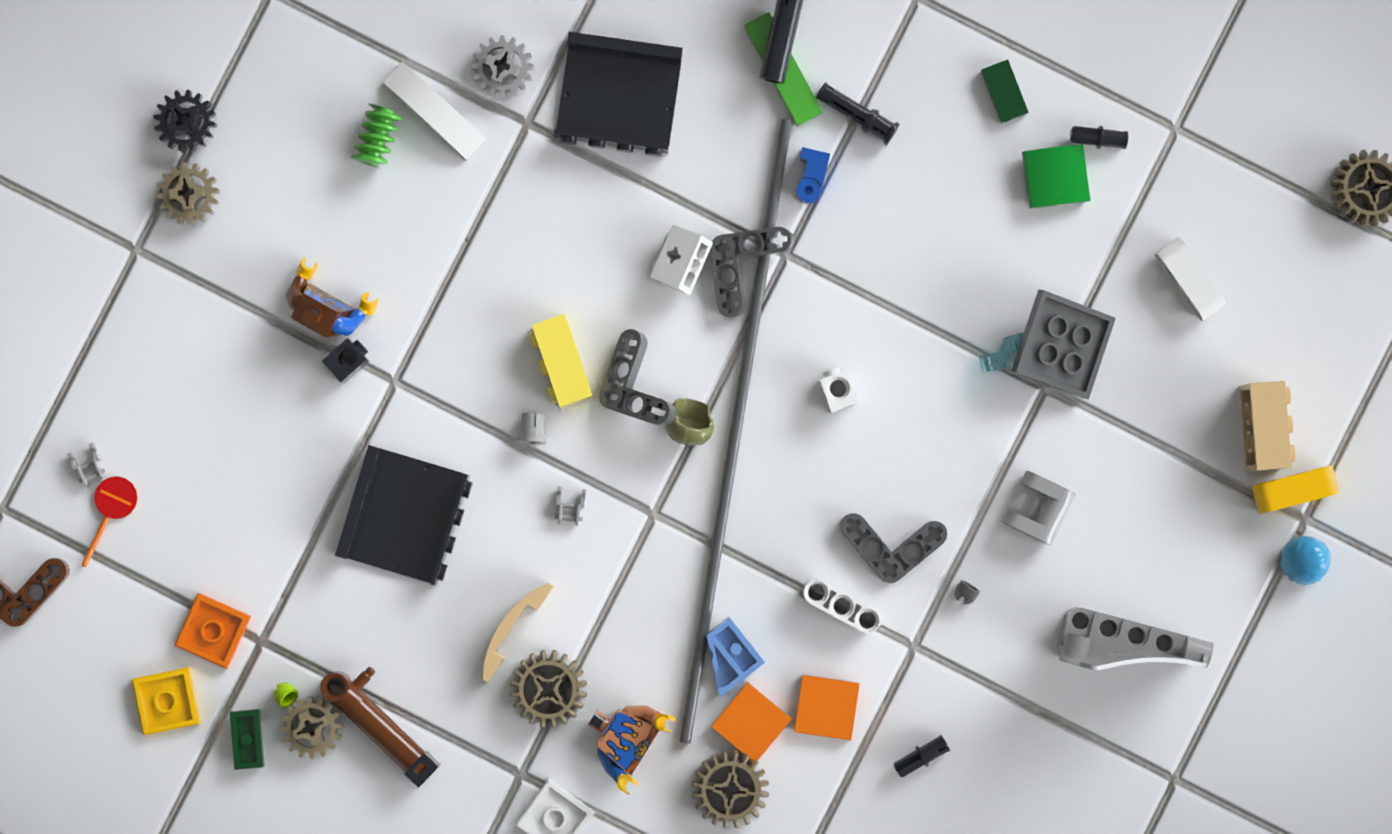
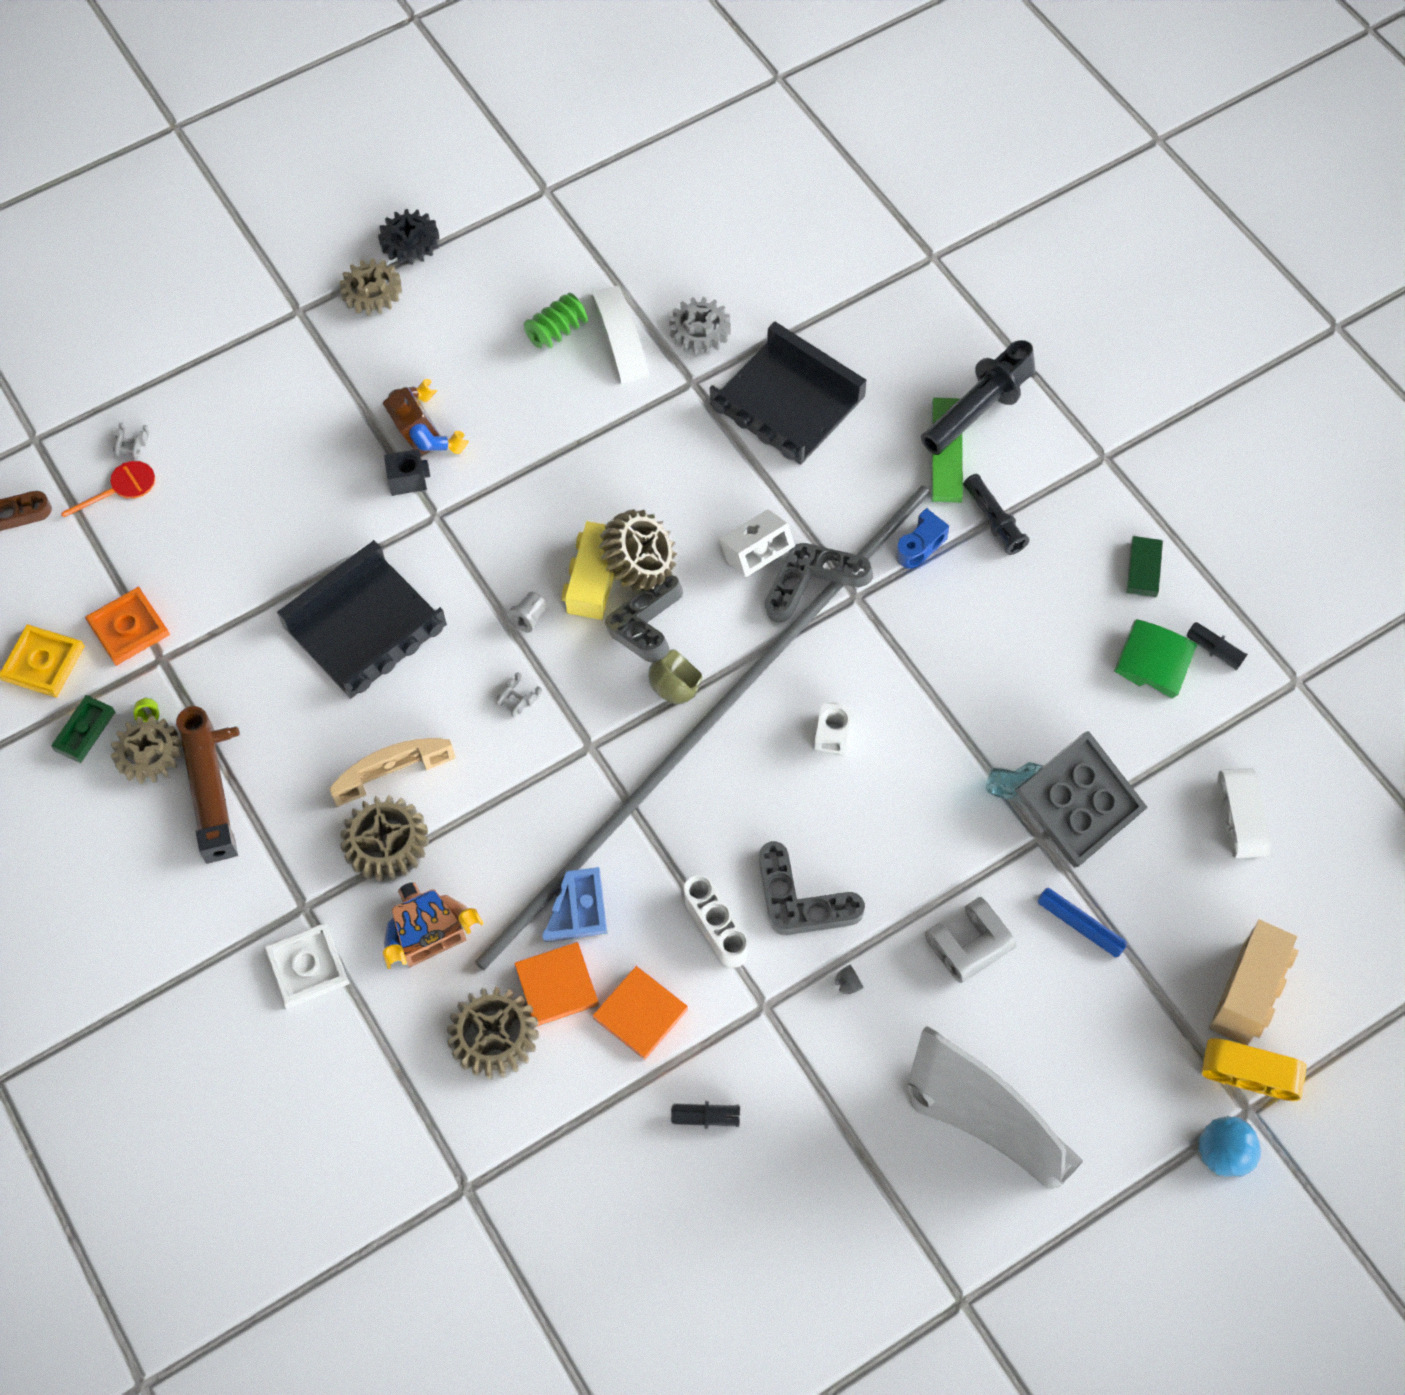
camera: 35 degrees right, 25 degrees down
(597, 324) = (638, 550): none -> dark tan gear
(1113, 442) = (1082, 922): none -> blue axle

